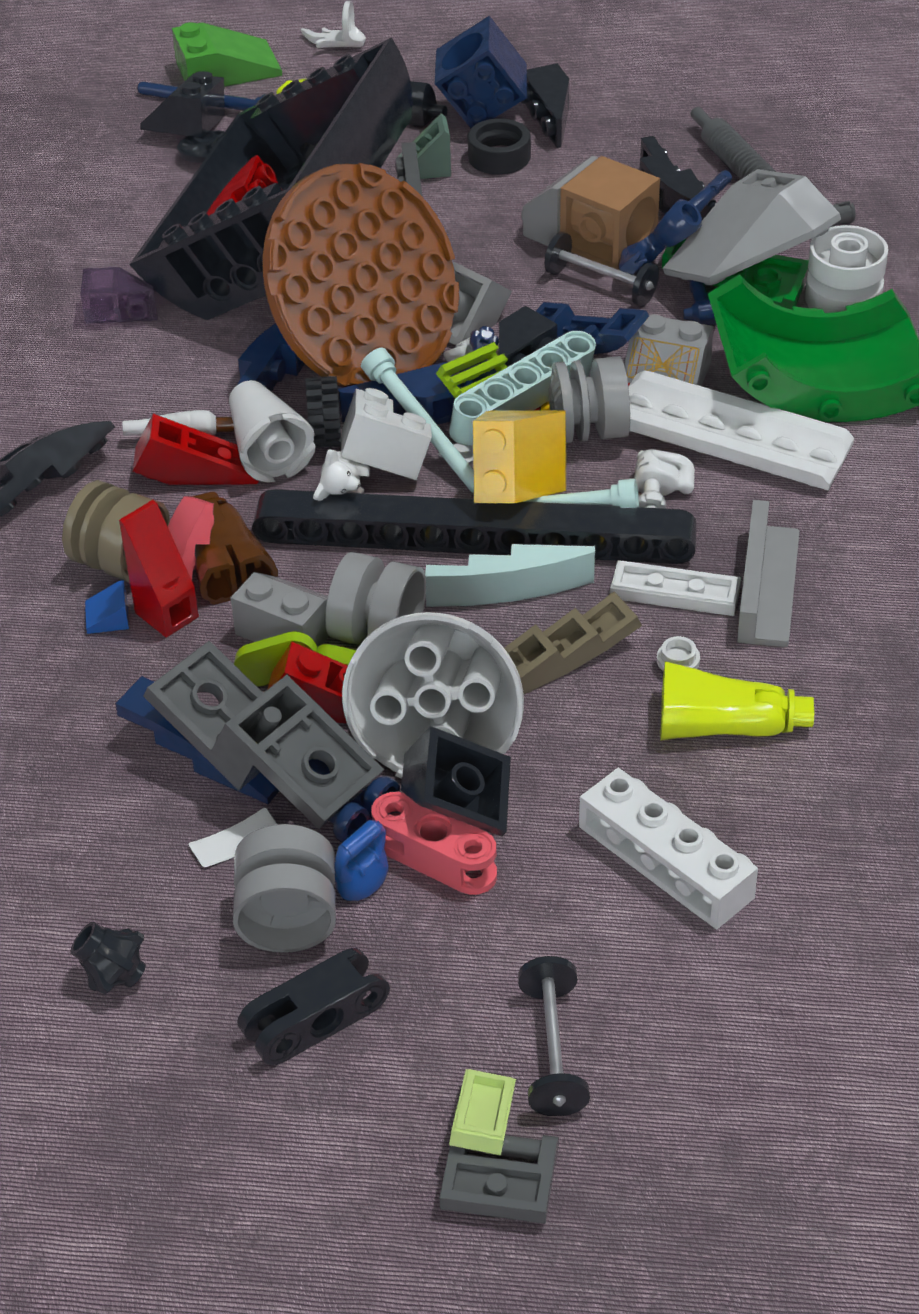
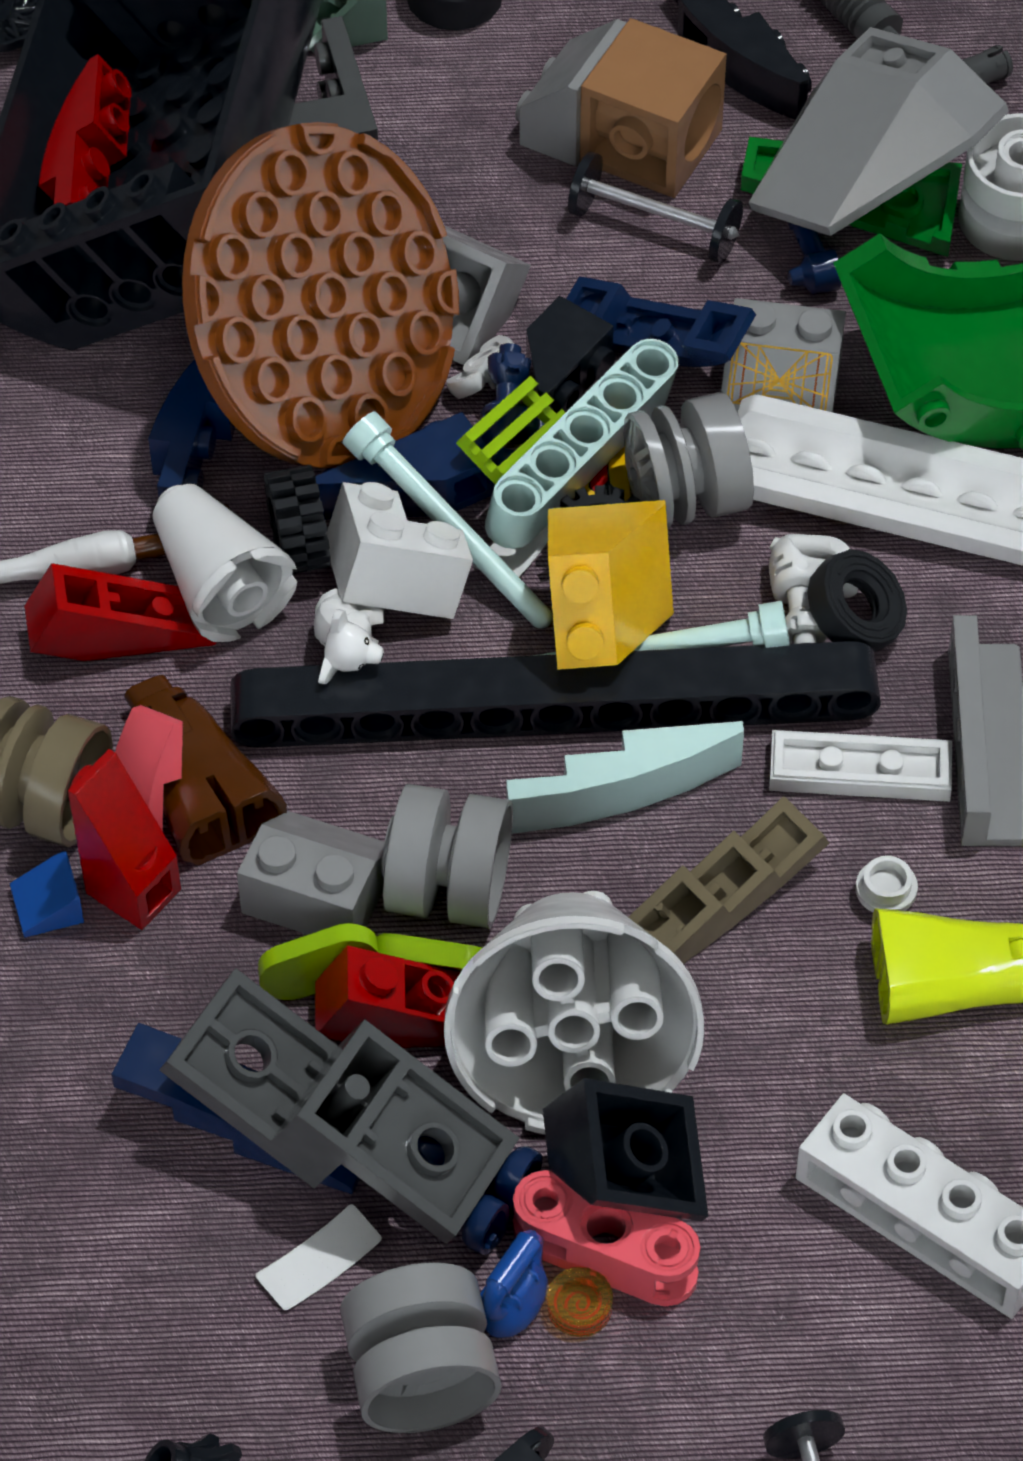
camera: 10 degrees left, 10 degrees up
(409, 883) = (579, 1302): none -> clear yellow tile
(674, 227) = (765, 137): dark blue animal -> none
(701, 477) = (878, 586): none -> black tyre

